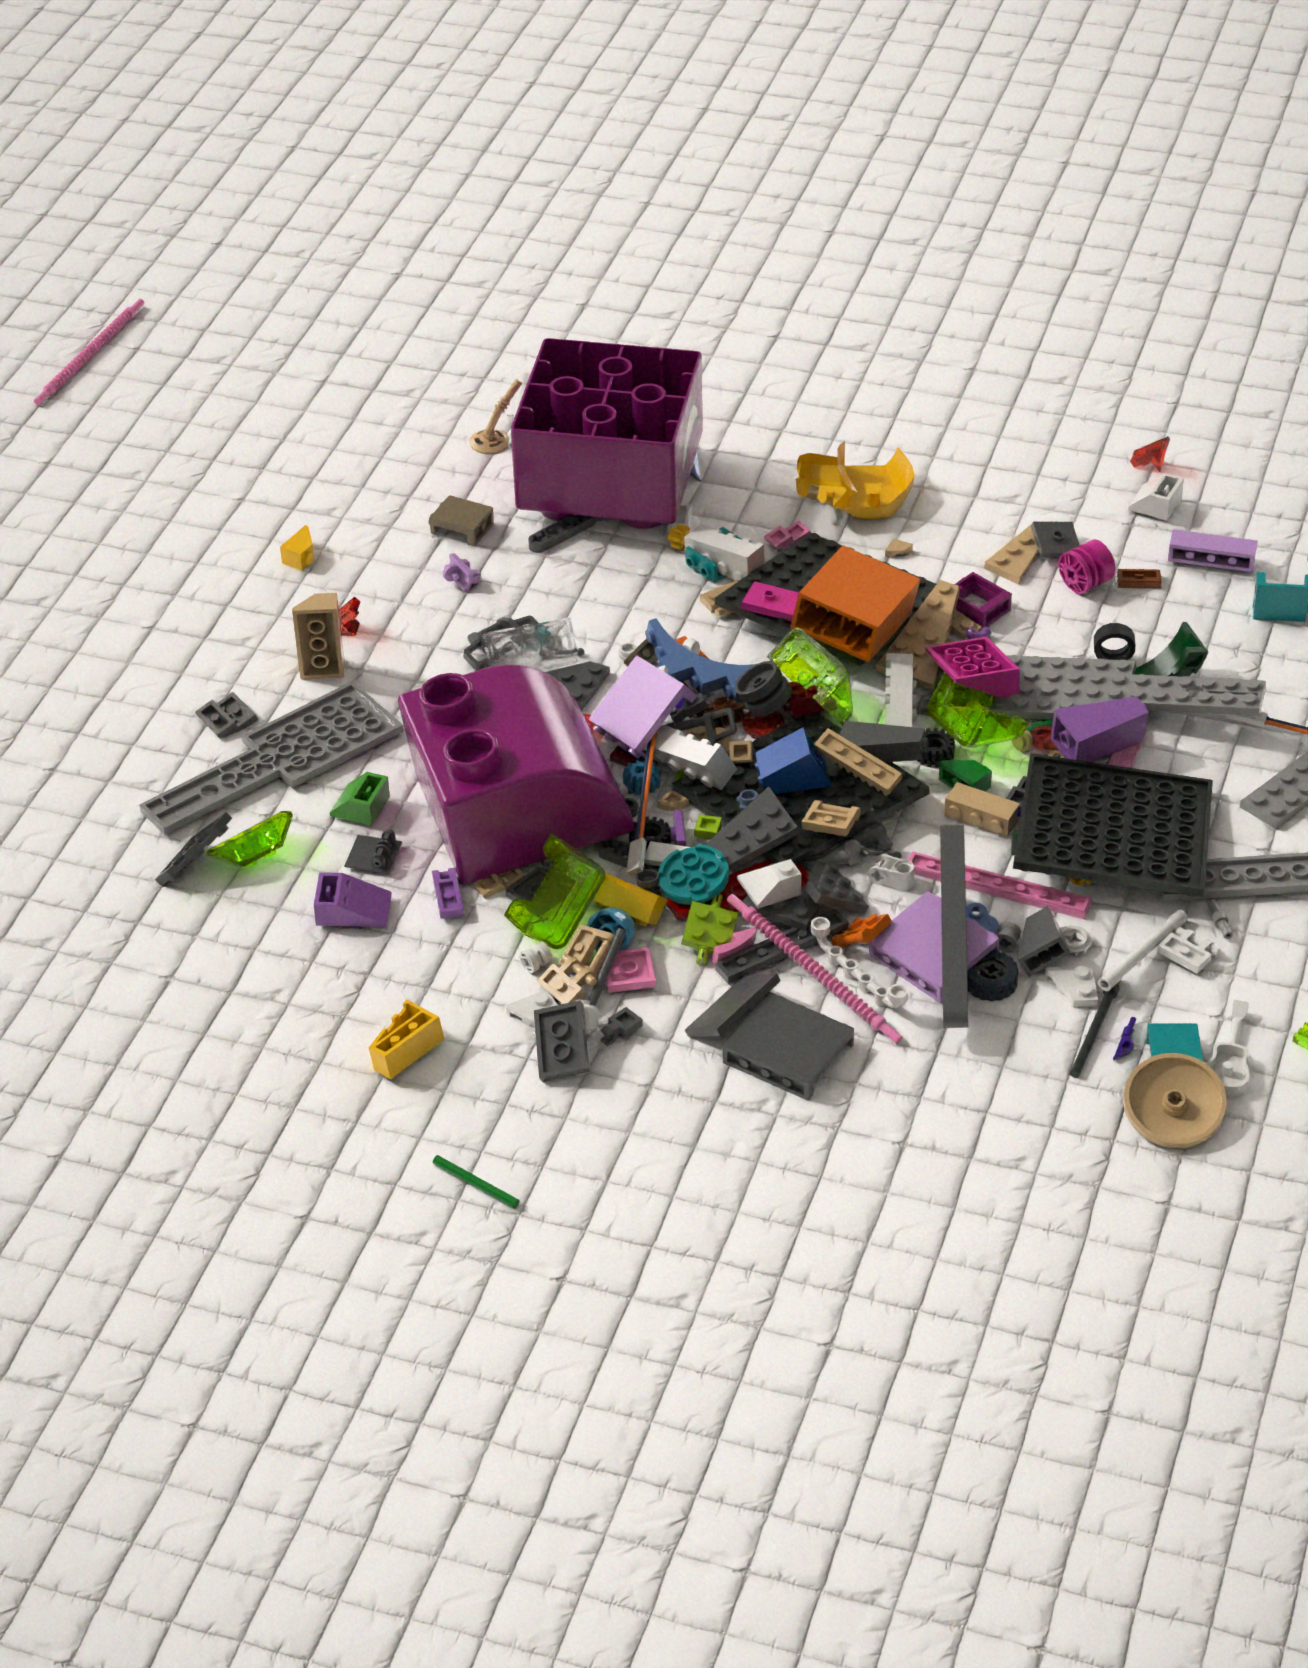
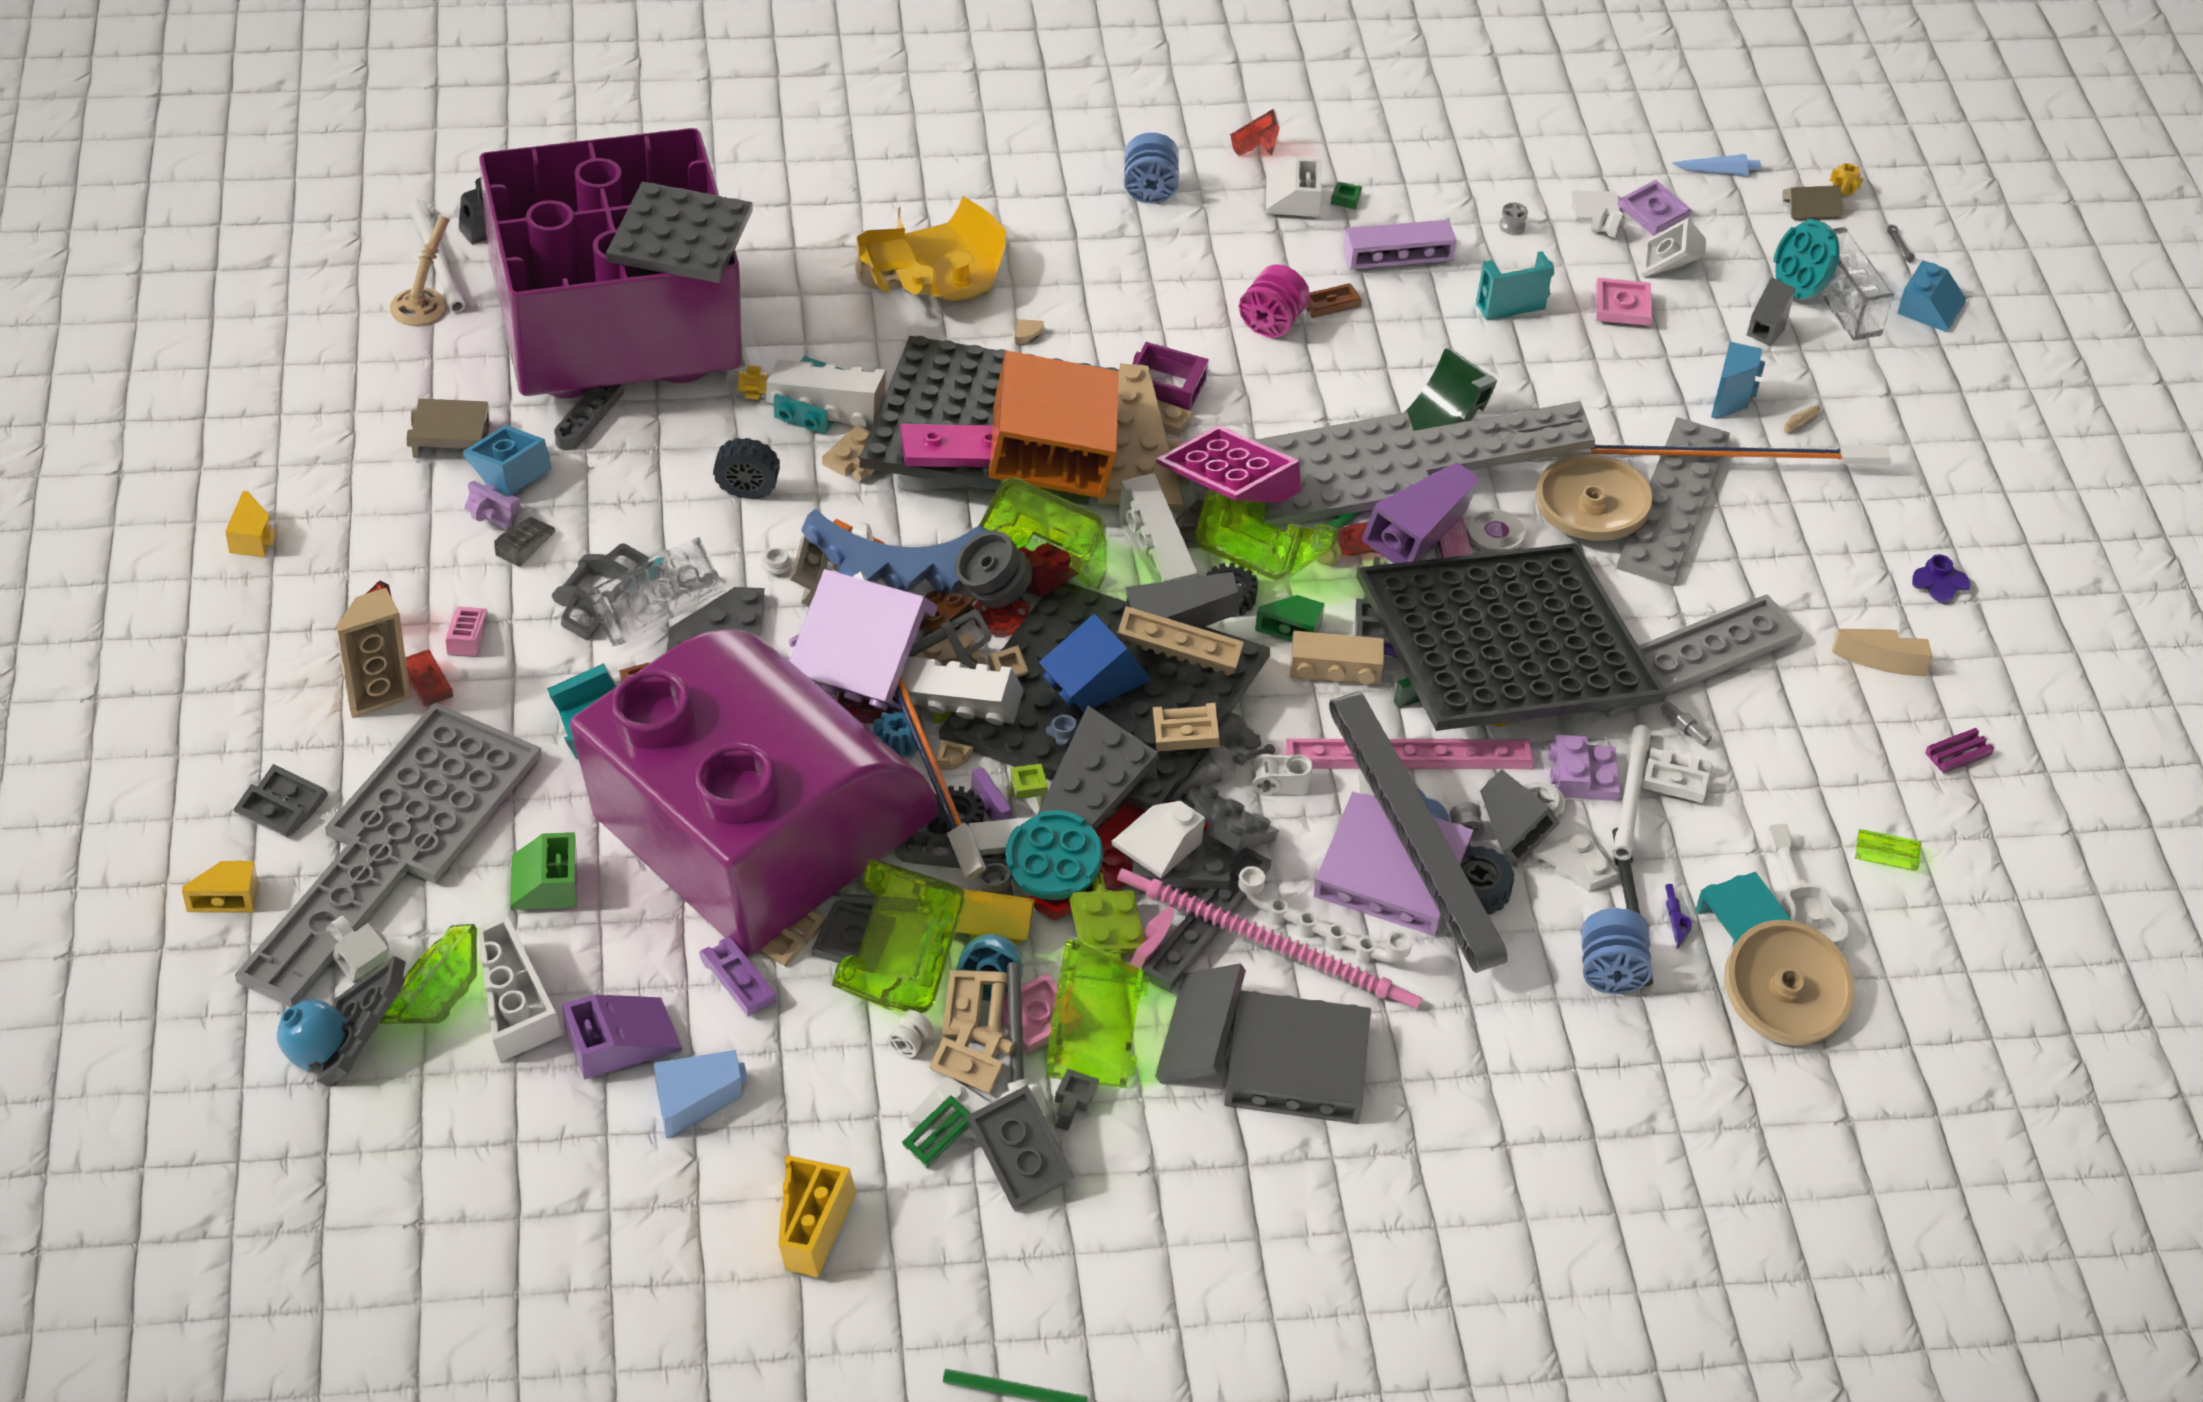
camera: 30 degrees left, 5 degrees up
(161, 755) = (223, 888): none -> yellow slope
(161, 847) = (310, 1032): none -> dark azure cylinder
(218, 805) = (358, 950): none -> white brick
(298, 861) = (515, 996): none -> white wedge
(358, 666) = (427, 678): none -> clear red plate
(374, 853) = (603, 947): dark grey hinge -> none
(380, 949) = (697, 1088): none -> light blue slope
(399, 645) = (466, 637): none -> bright pink slope
(469, 599) = (518, 554): none -> clear smoke slope
(487, 547) = (509, 459): none -> dark azure slope
(519, 1022) = (949, 1139): none -> green tile
(638, 587) = (746, 468): none -> black wheel
(645, 414) = (679, 232): none -> dark grey plate
(660, 976) = (1095, 1015): none -> clear neon green windscreen
(783, 538) = (884, 348): bright pink slope -> none
(862, 930) = (1299, 868): orange plate -> none
(971, 634) = (1193, 424): medium lavender arm -> none
(1015, 557) = (1174, 303): tan wing -> none
(1053, 458) = (1151, 167): none -> medium blue wheel
(1054, 538) = (1211, 273): dark grey plate -> none
(1055, 1043) = (1616, 951): none -> medium blue wheel
(1114, 630) = (1358, 383): black tyre -> none
(1119, 927) = (1583, 769): none -> lavender plate
(1160, 758) = (1495, 531): none -> white tile
(1198, 510) = (1346, 195): none -> green tile
(1246, 752) = (1593, 497): none -> tan dish

